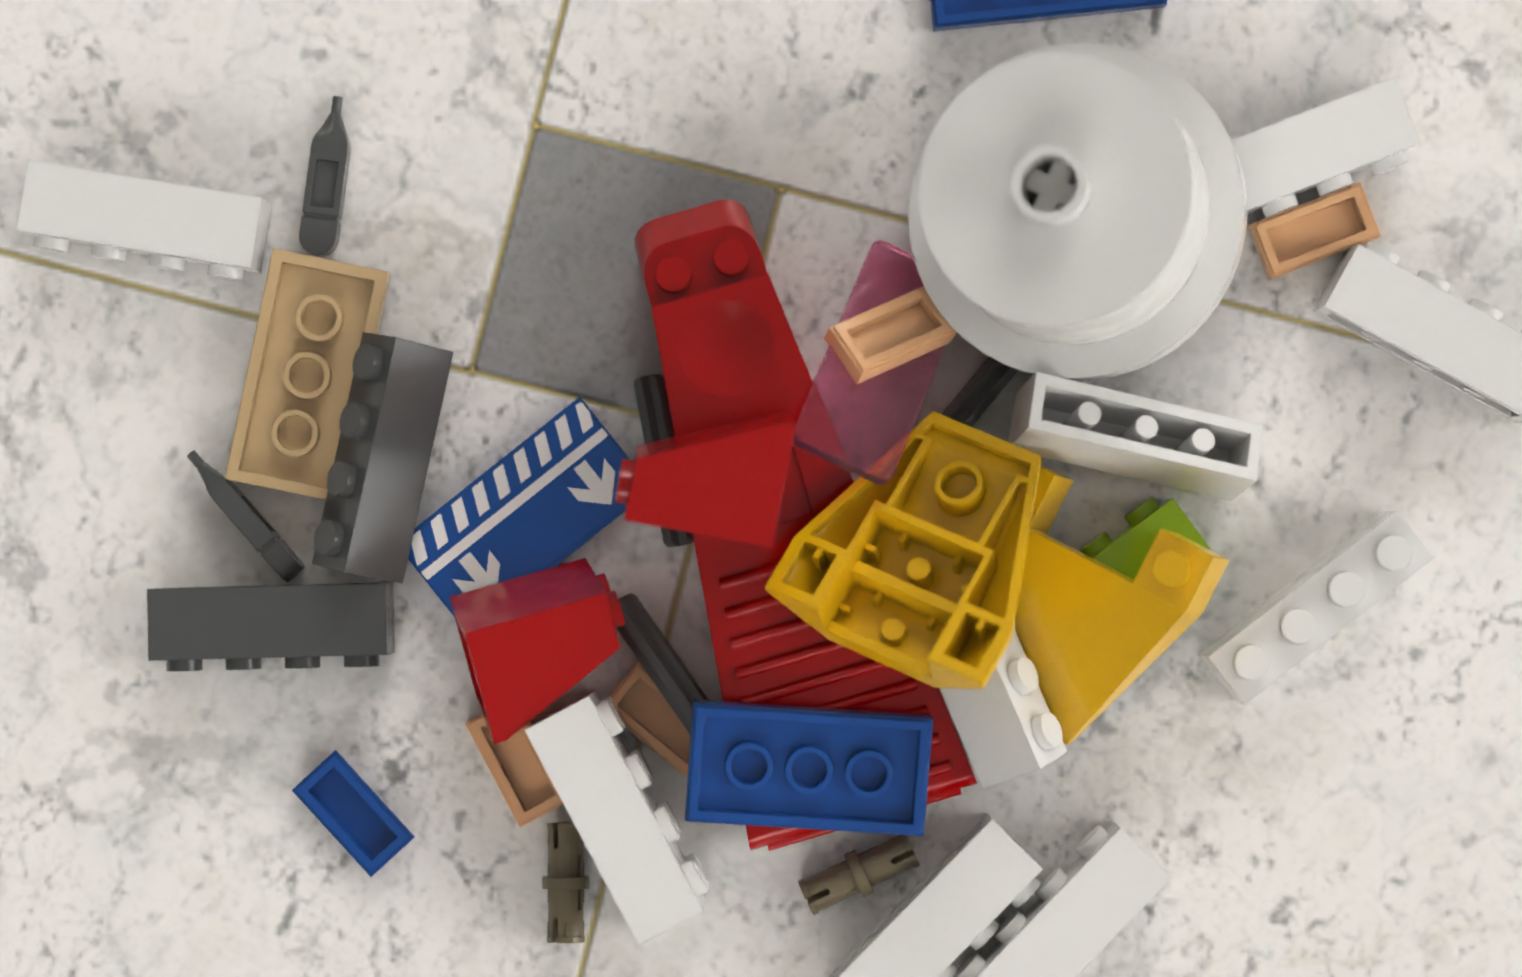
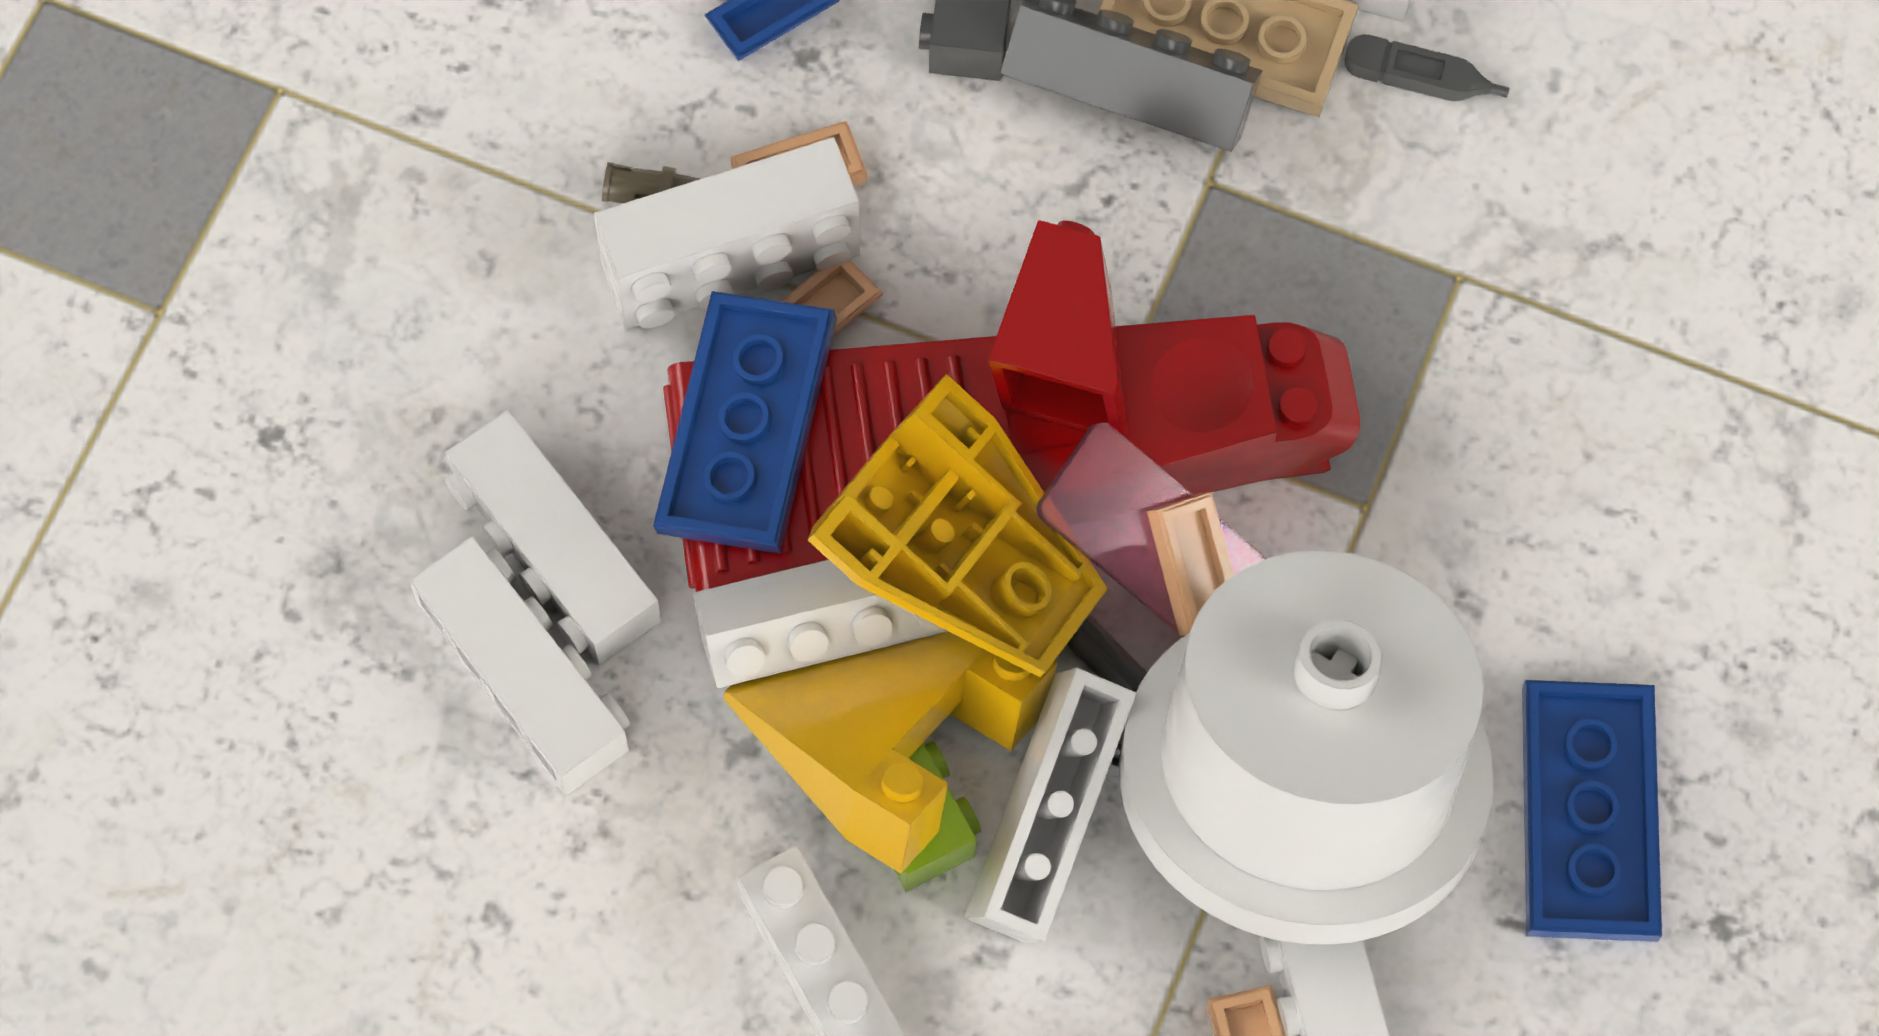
camera: 100 degrees right, 20 degrees down
(524, 509) = (1031, 166): blue tile -> none
(535, 640) = (925, 170): red slope -> none
(659, 659) = (892, 305): dark grey axle -> none
(858, 873) = (622, 476): dark tan pin -> none

